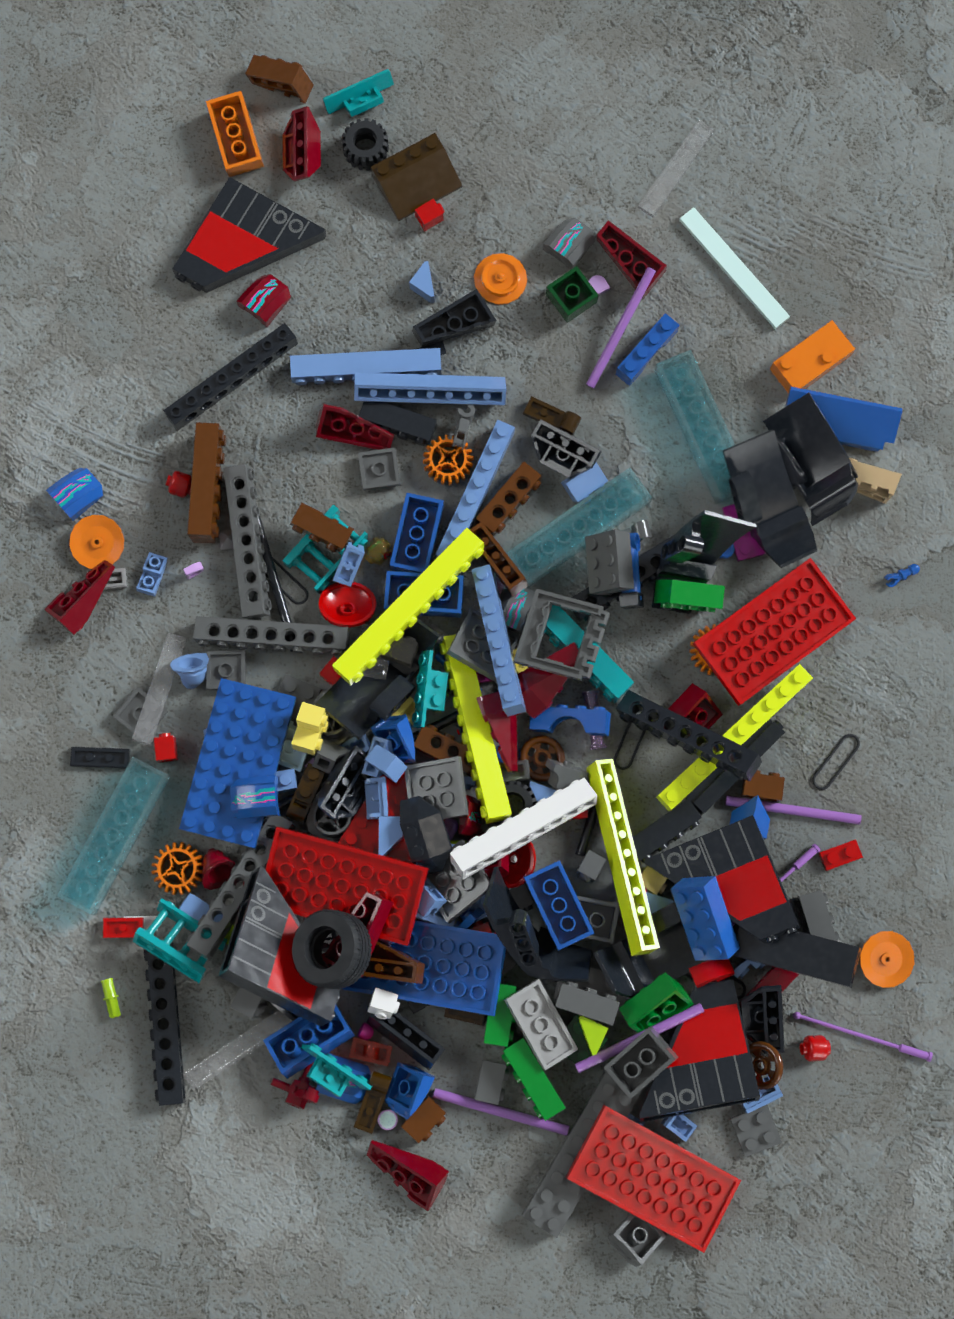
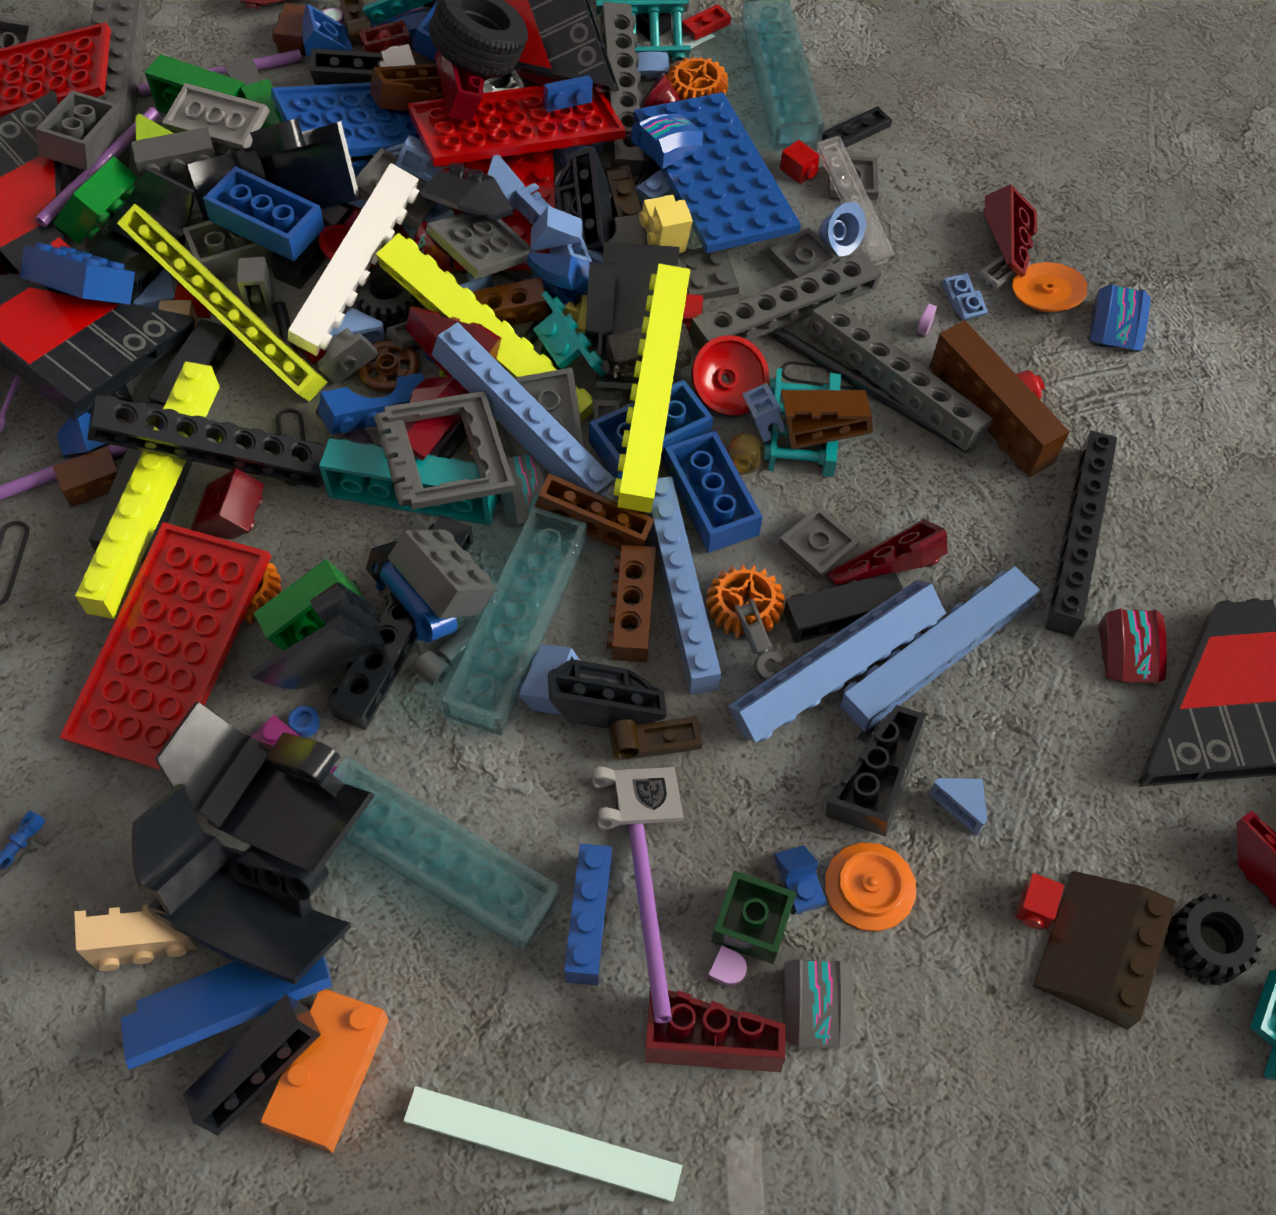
camera: 145 degrees right, 20 degrees down
(286, 878) = (567, 93): none -> blue plate
(532, 303) = (799, 874): none -> blue slope
(578, 391) = (641, 794): none -> light grey flag
(845, 376) = (251, 1065): none -> black brick

